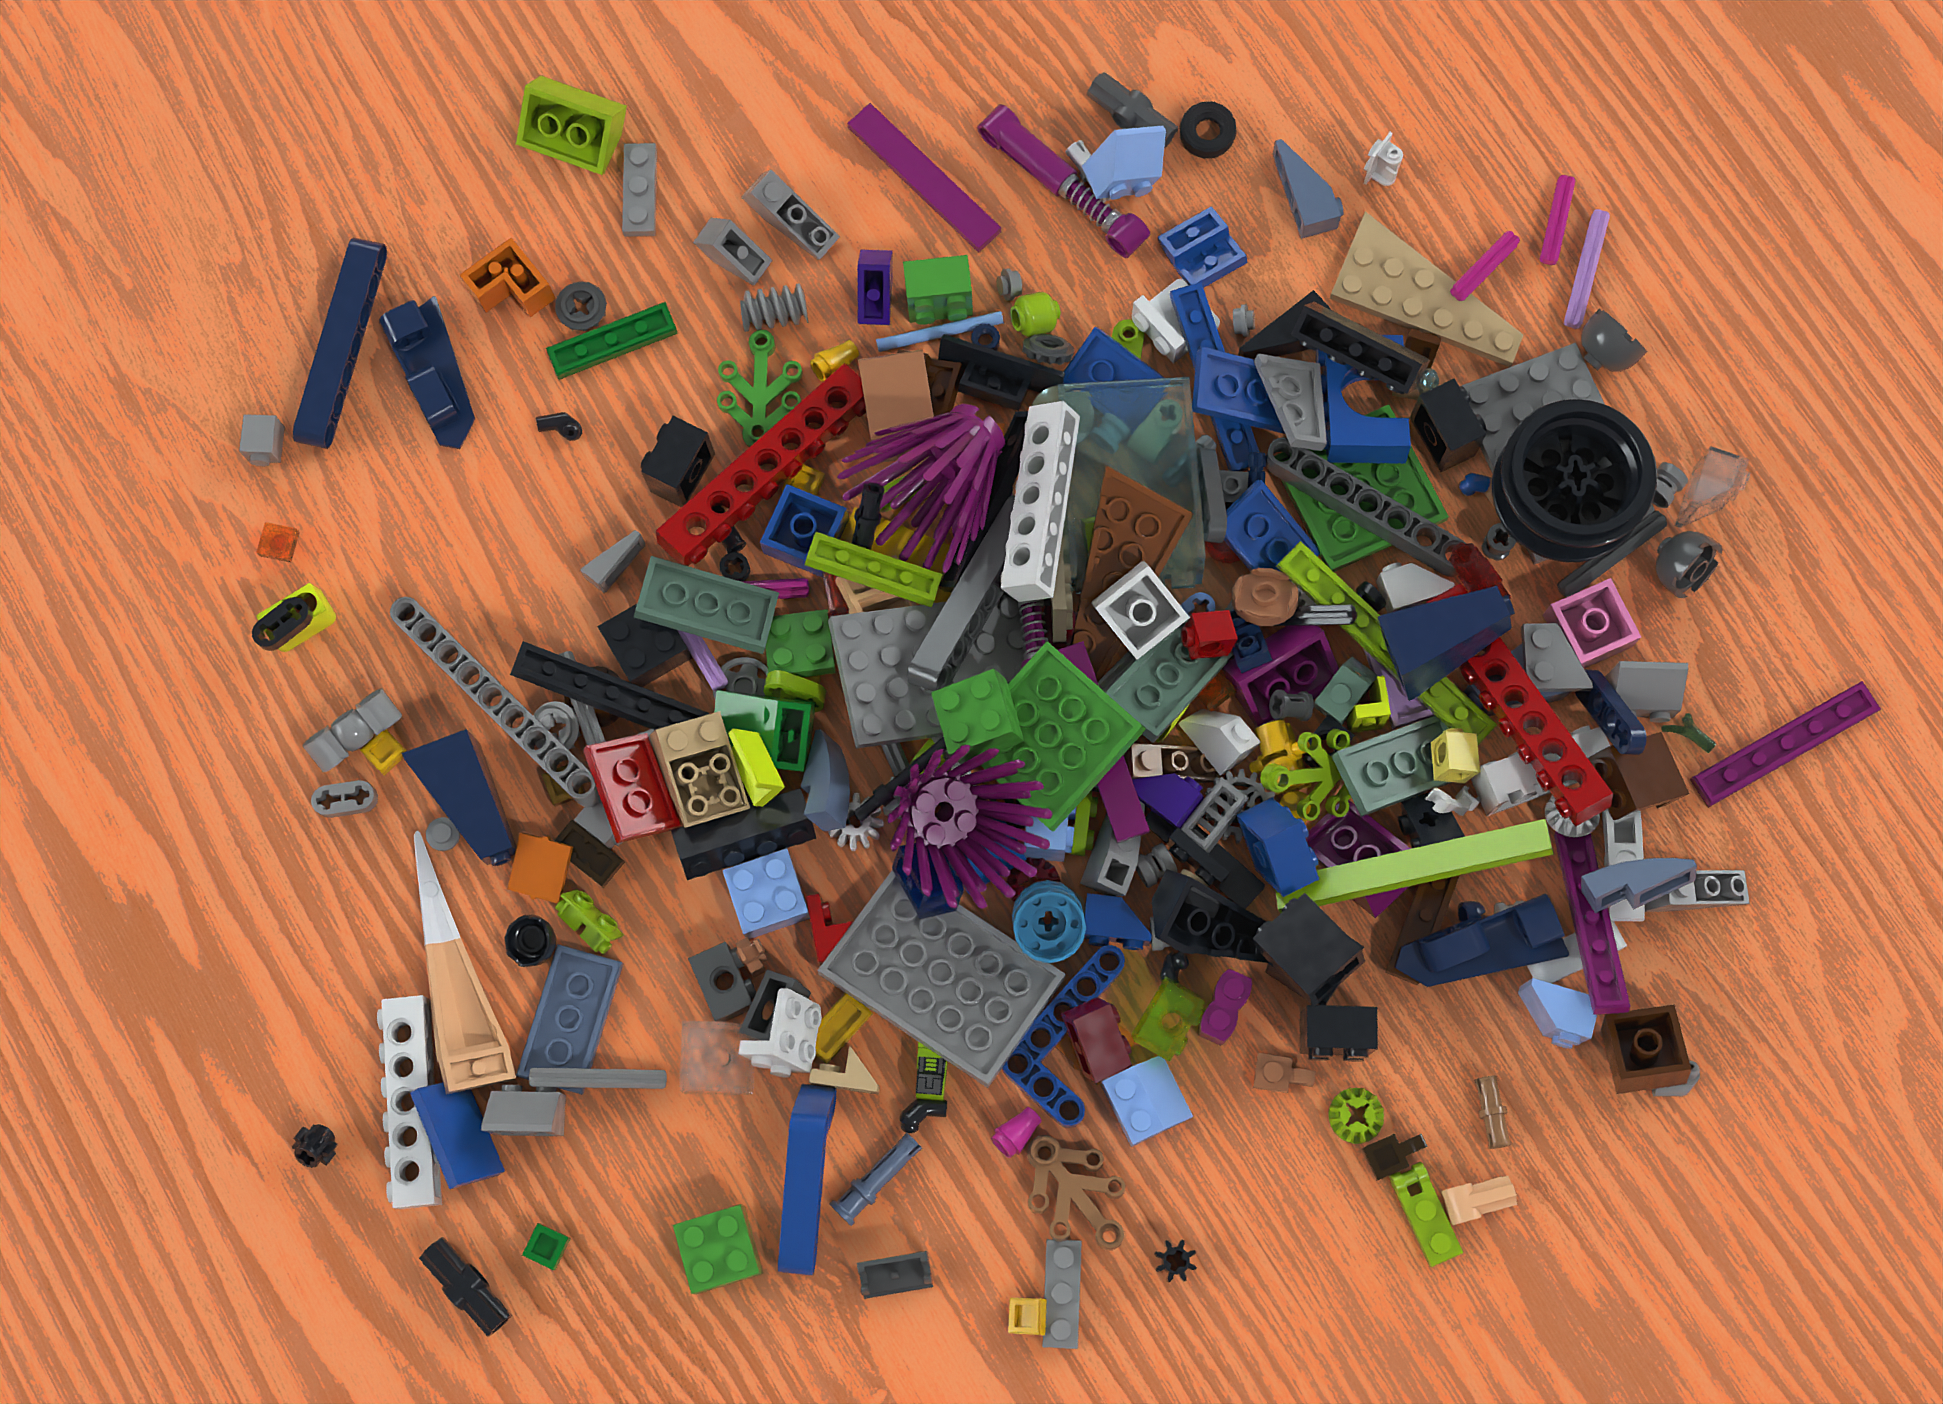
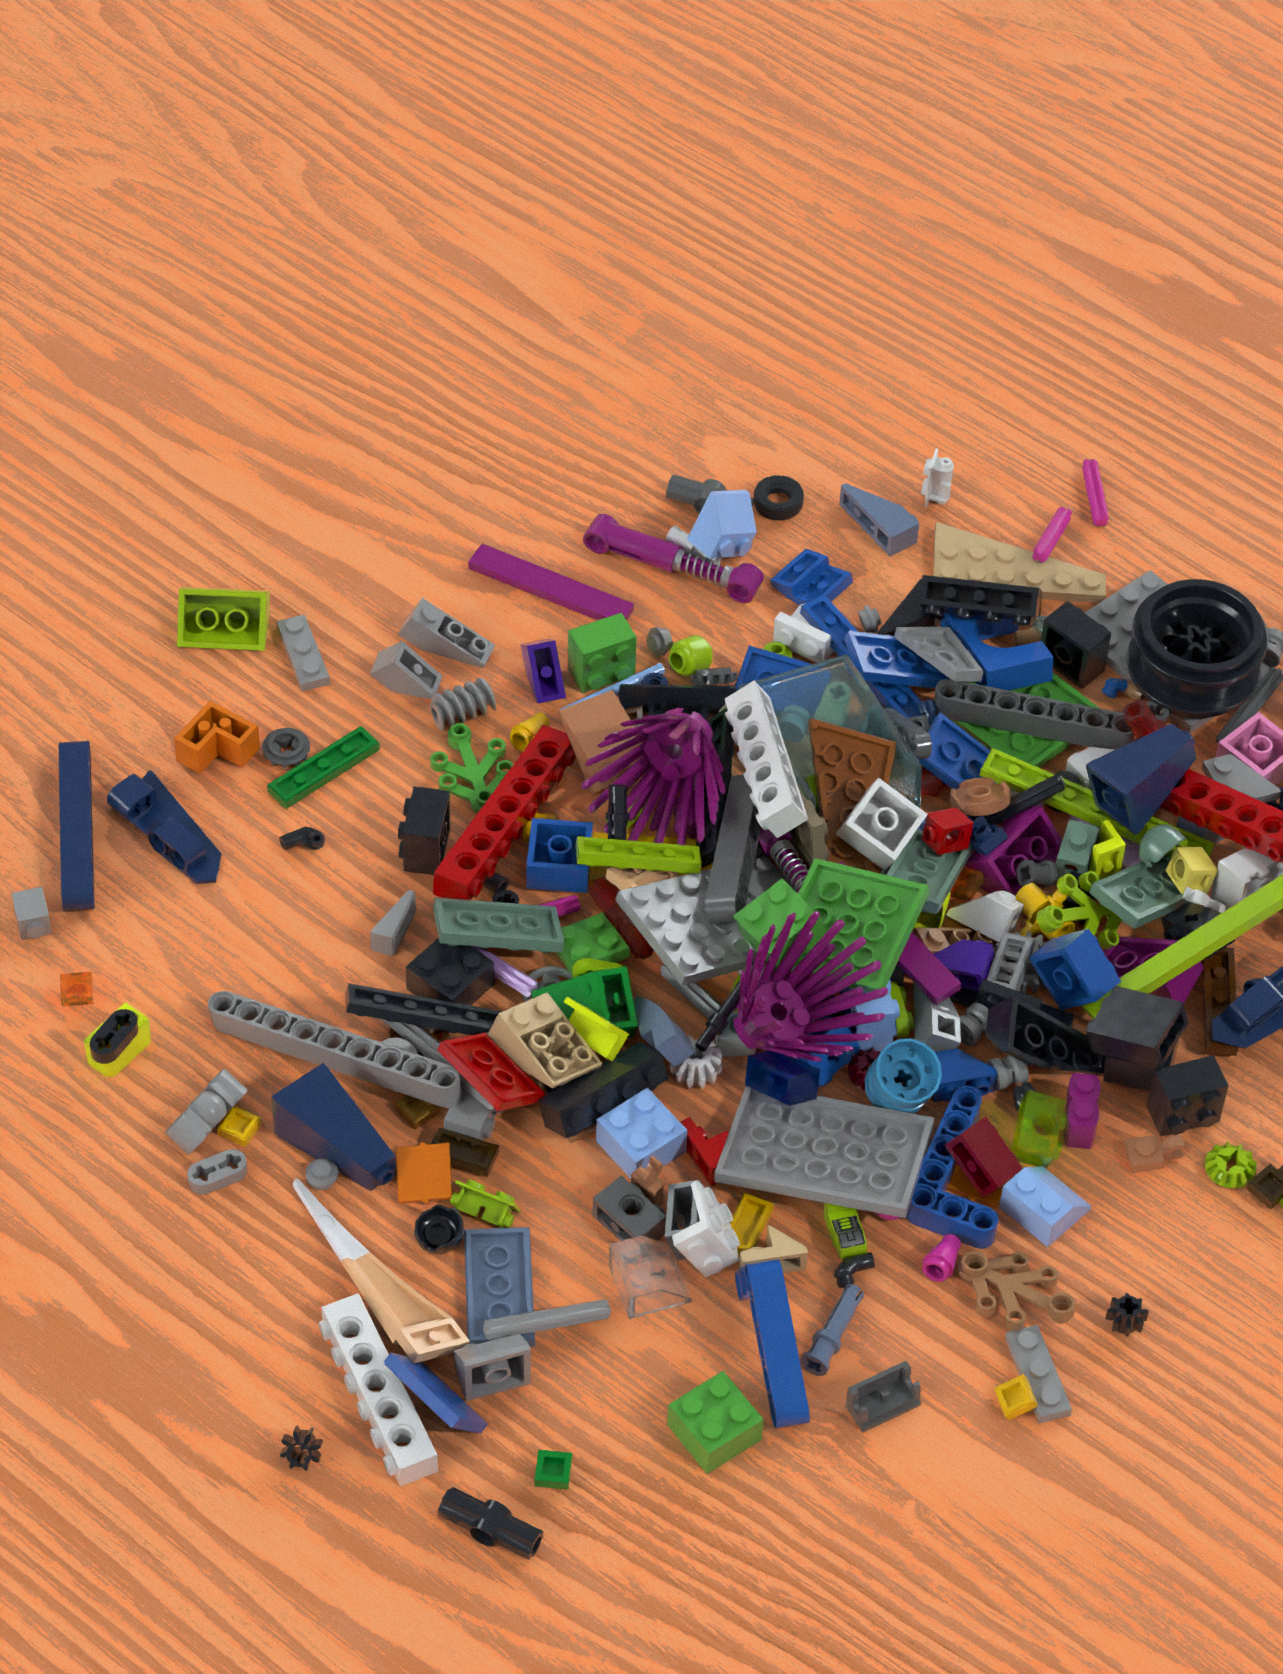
camera: 25 degrees left, 25 degrees down
(1431, 719) = (1158, 842): none -> sand green hair
(1586, 269) = (1135, 520): lavender axle -> none
(1609, 344) = (1178, 559): dark grey cylinder -> none

